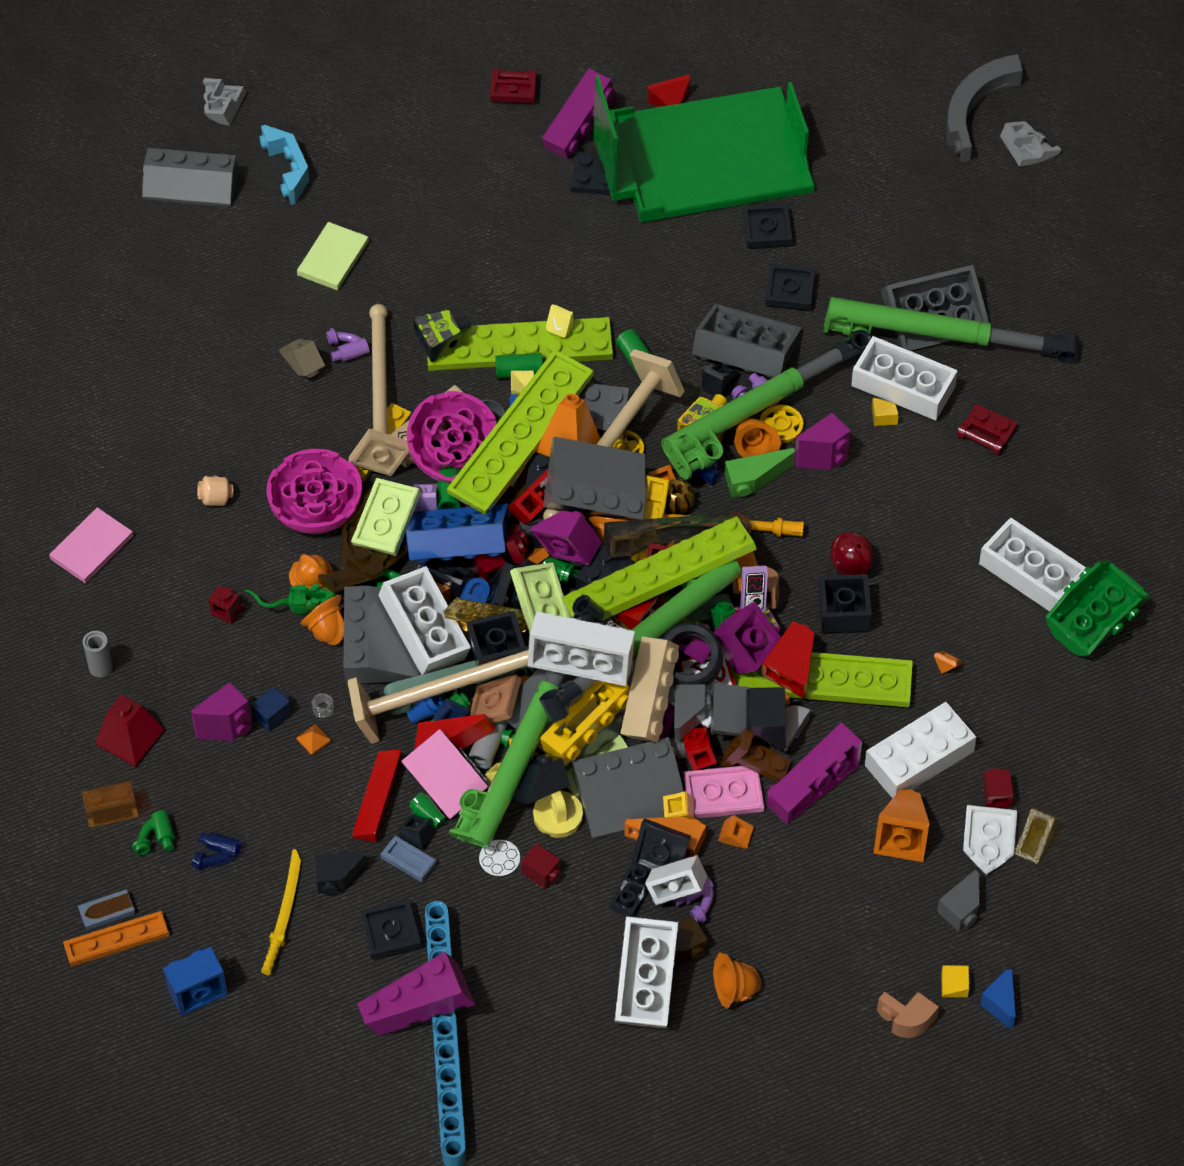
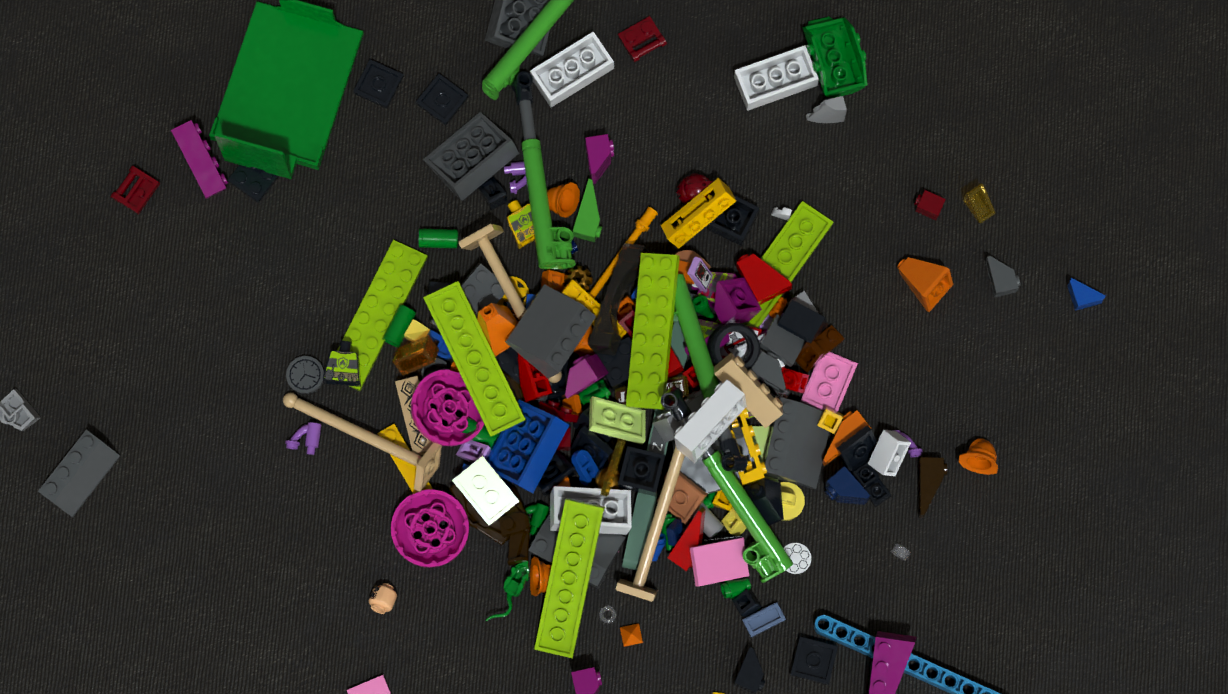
camera: 60 degrees left, 20 degrees up
(229, 601) = (487, 639): dark red brick -> none
(271, 708) = (593, 651): dark blue brick -> none
(277, 142) = (82, 392): medium azure slope -> none
(303, 357) = (298, 475): dark tan slope -> none
(307, 570) = (492, 566): orange piece -> none
(332, 256) = (215, 405): yellowish green tile -> none
(334, 632) = (569, 578): none -> lime plate
(377, 795) = (702, 614): red slope -> none
(408, 307) = (305, 375): none -> dark grey tile
(493, 387) = (415, 355): none -> clear orange brick
(541, 866) = (823, 534): dark red brick -> none
(559, 321) = (383, 277): light yellow slope -> none
(571, 956) = (900, 552): none -> clear axle
(608, 856) = (846, 489): none -> dark blue slope
(646, 972) = (950, 511): white brick -> none
(669, 92) = (215, 84): red slope -> none
(736, 832) = (864, 392): orange slope -> none
(782, 423) = (556, 173): yellow wheel -> none
(816, 774) = (855, 317): magenta wedge -> none
(824, 560) = (698, 213): none -> yellow brick
(884, 412) = (587, 99): yellow slope -> none
(885, 649) = (784, 214): none -> white tile
(909, 1019) = (1067, 360): nougat brick -> none
(920, 750) = (875, 237): white brick -> none
(946, 661) = (813, 177): orange slope -> none
(955, 981) = (1054, 317): yellow slope -> none
(989, 836) = (960, 231): white tile -> none
(1033, 634) = (829, 111): none -> light grey slope

